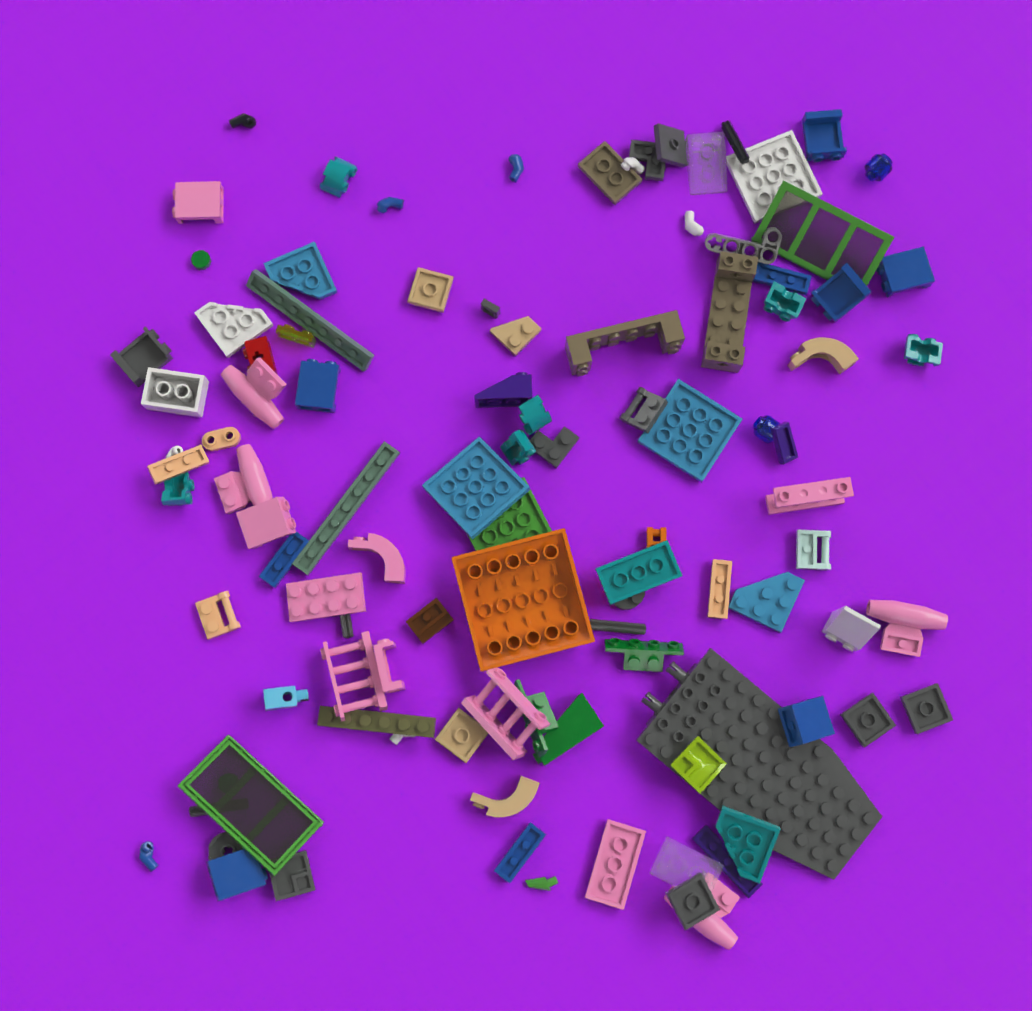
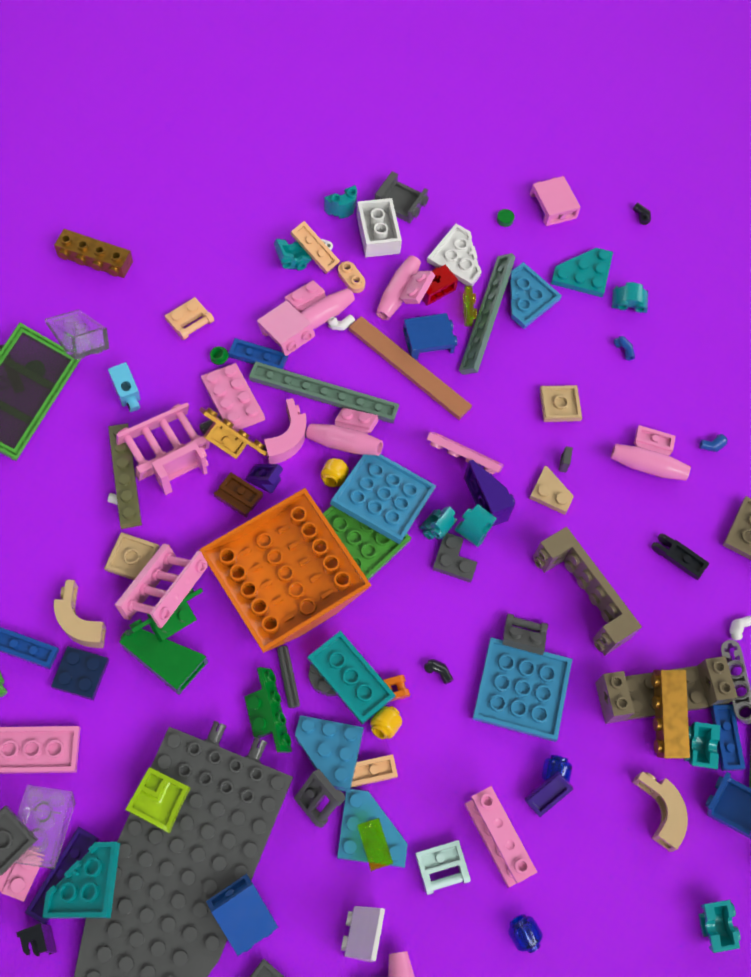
camera: 65 degrees right, 15 degrees down
(107, 692) = (93, 253): none -> pearl gold brick
(133, 419) = (343, 204): none -> teal cylinder
(202, 730) = (78, 333): none -> clear slope
(272, 597) = (219, 355): none -> green plate
(275, 467) = (335, 324): none -> white arm
(292, 206) = (585, 272): none -> teal plate
(343, 417) = (410, 368): none -> nougat tile
(373, 612) = (228, 438): none -> pearl gold bracket
(401, 498) = (348, 433): none -> bright pink plate
(419, 590) = (265, 476): none -> dark purple slope
(436, 525) = (334, 472): none -> yellow head
(454, 400) = (457, 450): none -> bright pink plate
(511, 229) = (652, 455): none -> bright pink plate
(557, 808) = (80, 673): none -> dark blue plate
(615, 245) = (680, 556): none -> black hinge
(650, 493) = (439, 667): none -> black arm
(685, 555) = (386, 722): none -> yellow head
(693, 609) = (331, 748): none -> dark azure plate
(727, 635) = (312, 795): none -> dark grey plate
(751, 316) = (670, 714): none -> pearl gold brick
(775, 890) = (40, 938): none -> black hinge
(783, 598) = (374, 844): none -> clear neon green plate
(883, 503) = (525, 933): none -> clear blue head

